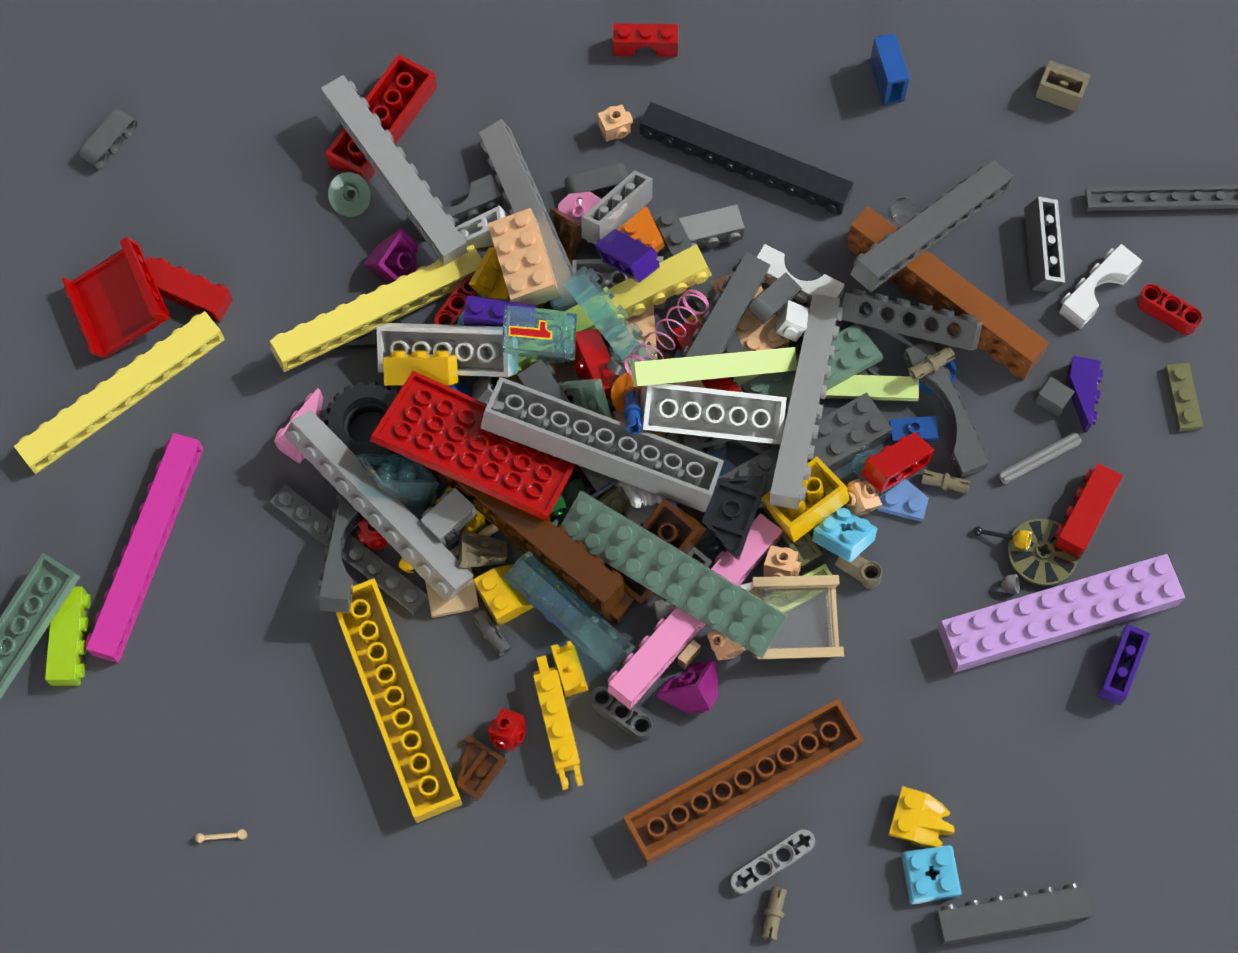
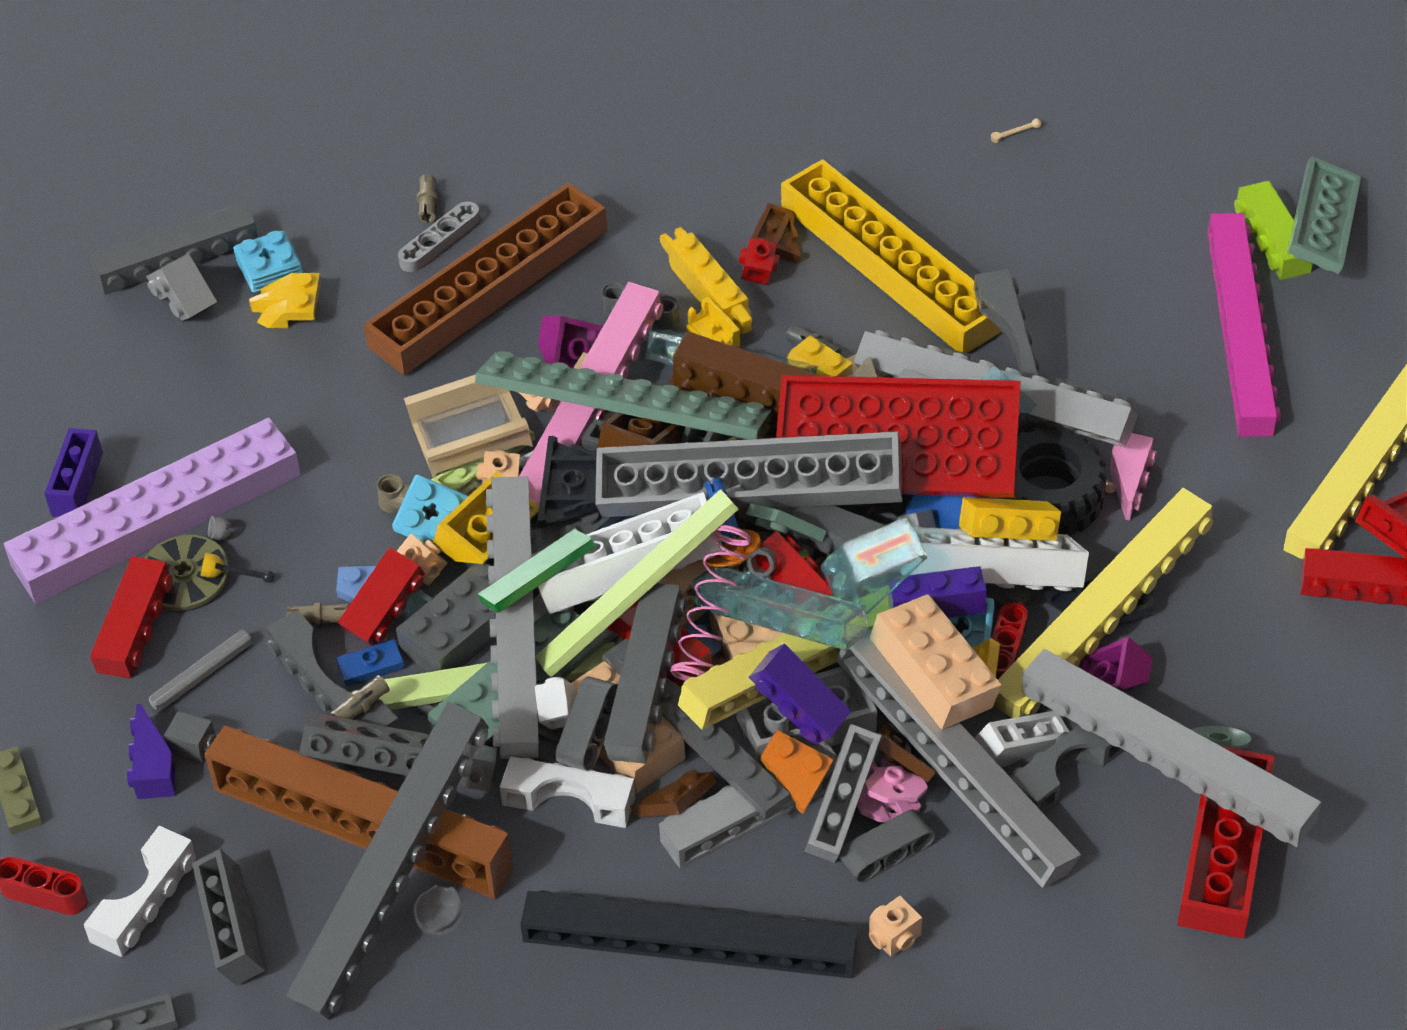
camera: 165 degrees right, 20 degrees down
(724, 252) = (676, 796): none -> reddish brown wing
(784, 406) = (536, 570): none -> tile
(1016, 852) = (183, 286): none -> light grey brick

